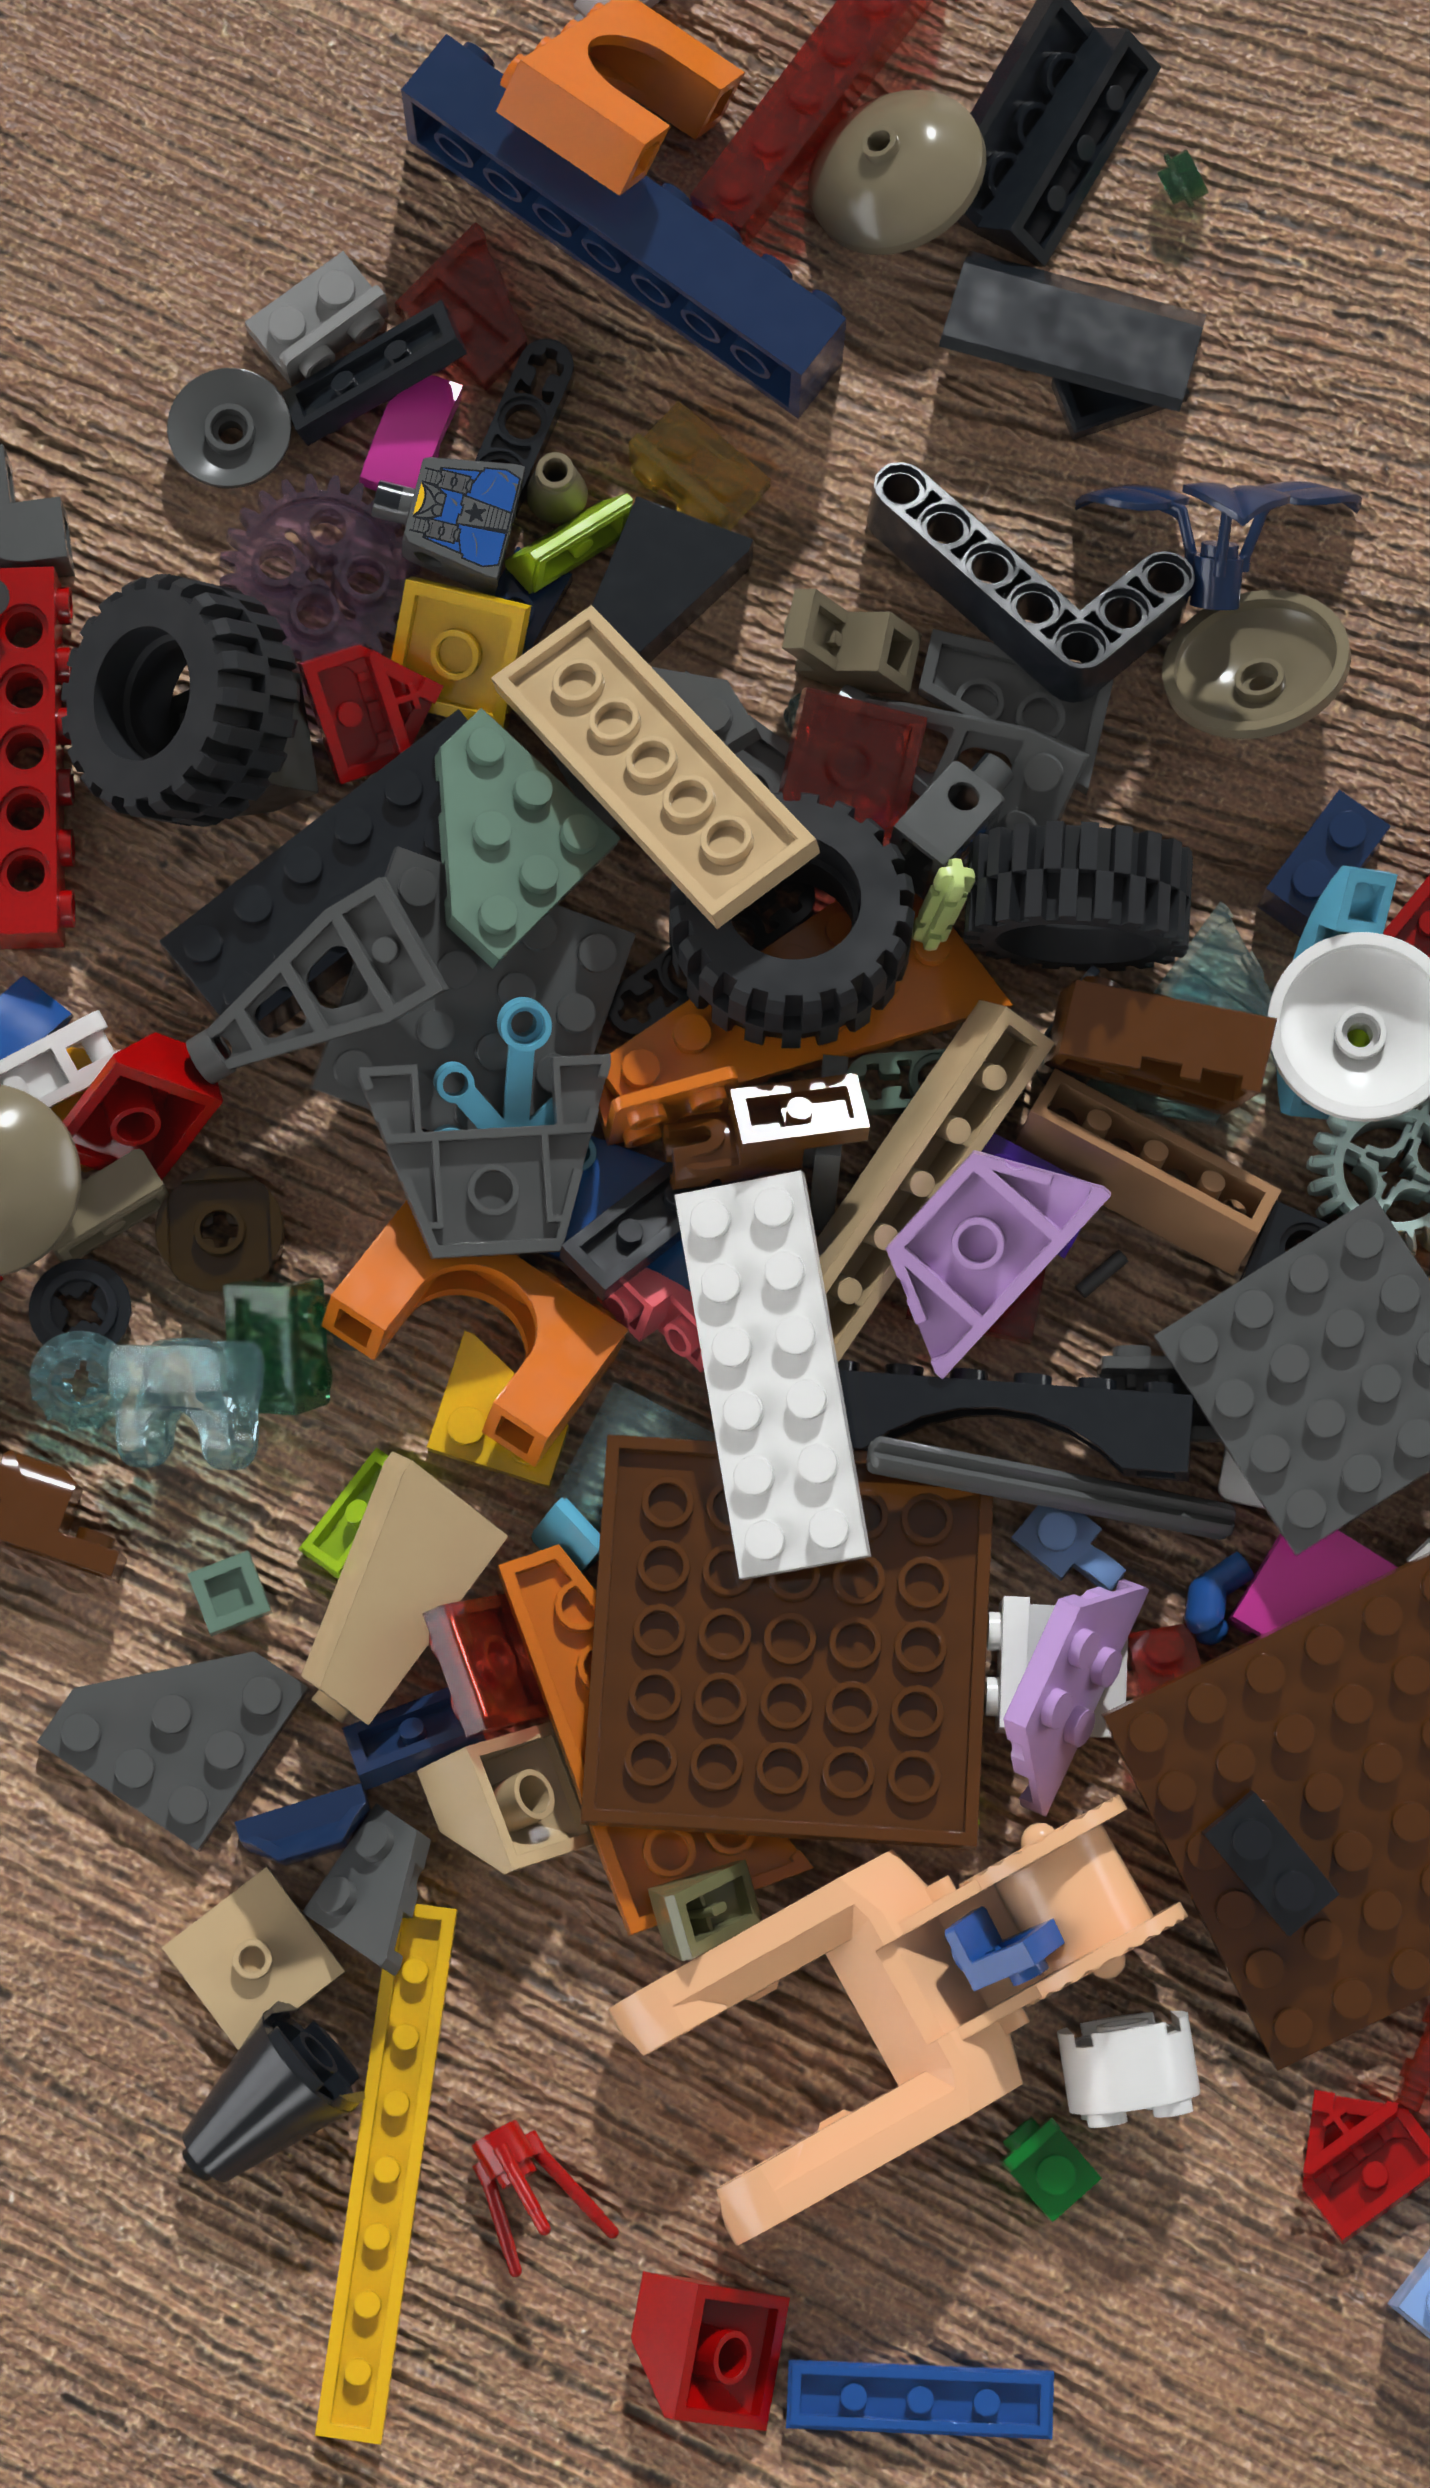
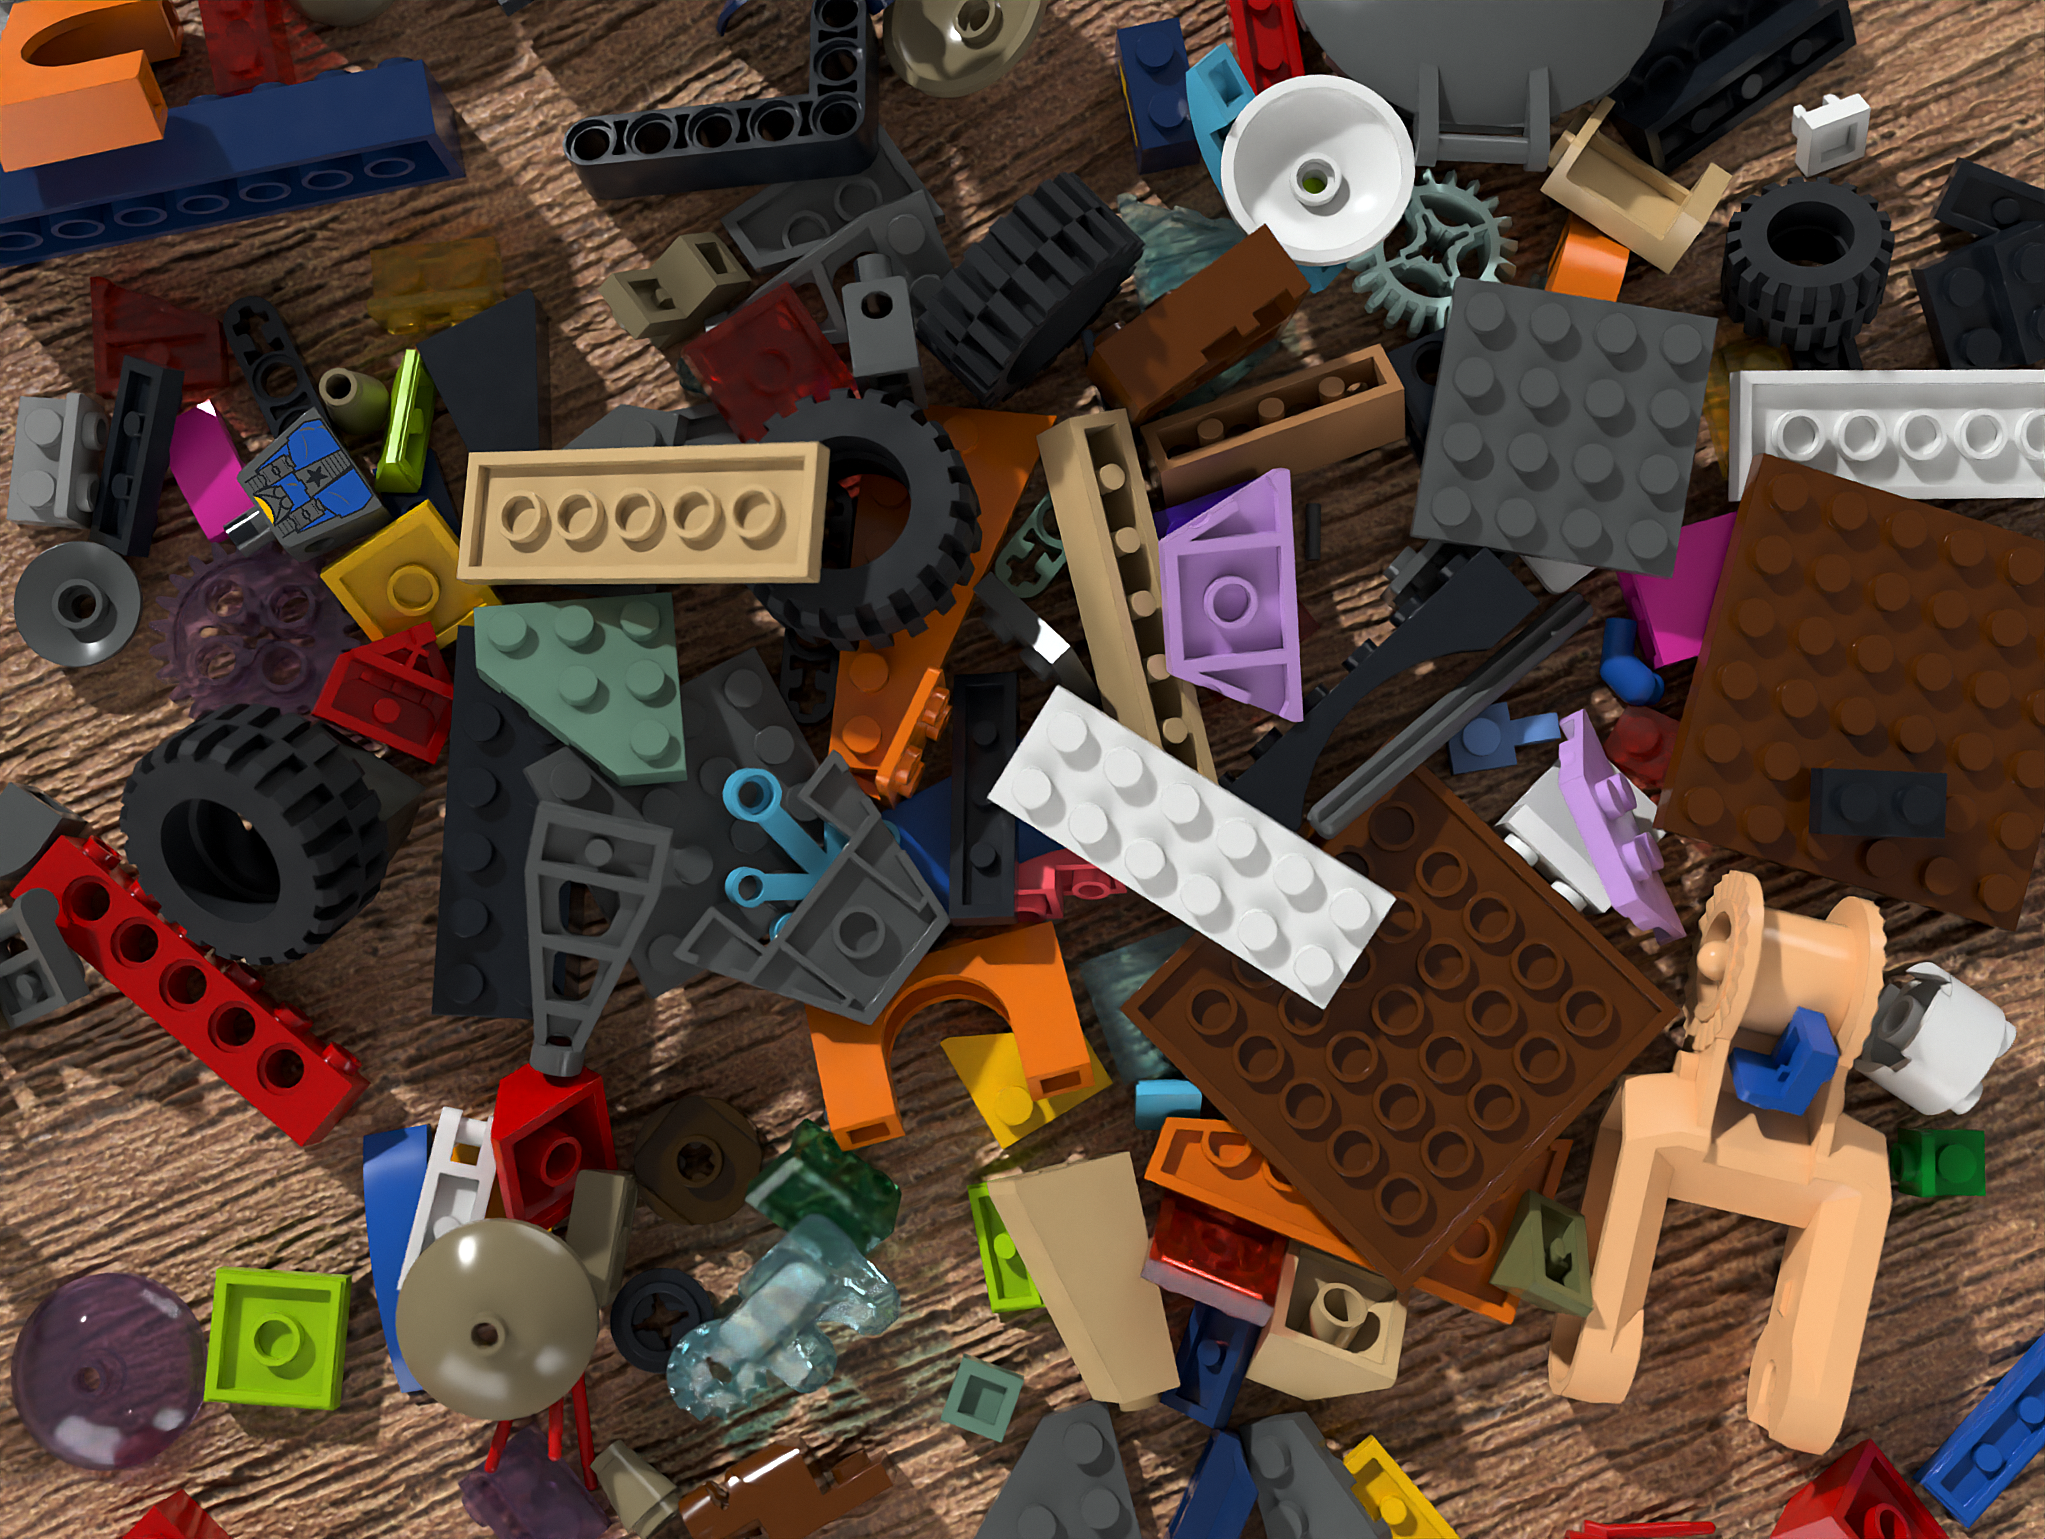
camera: 45 degrees left, 5 degrees up
(765, 1130) = (998, 683): reddish brown plate -> none
(943, 904) = (943, 392): yellowish green axle -> none

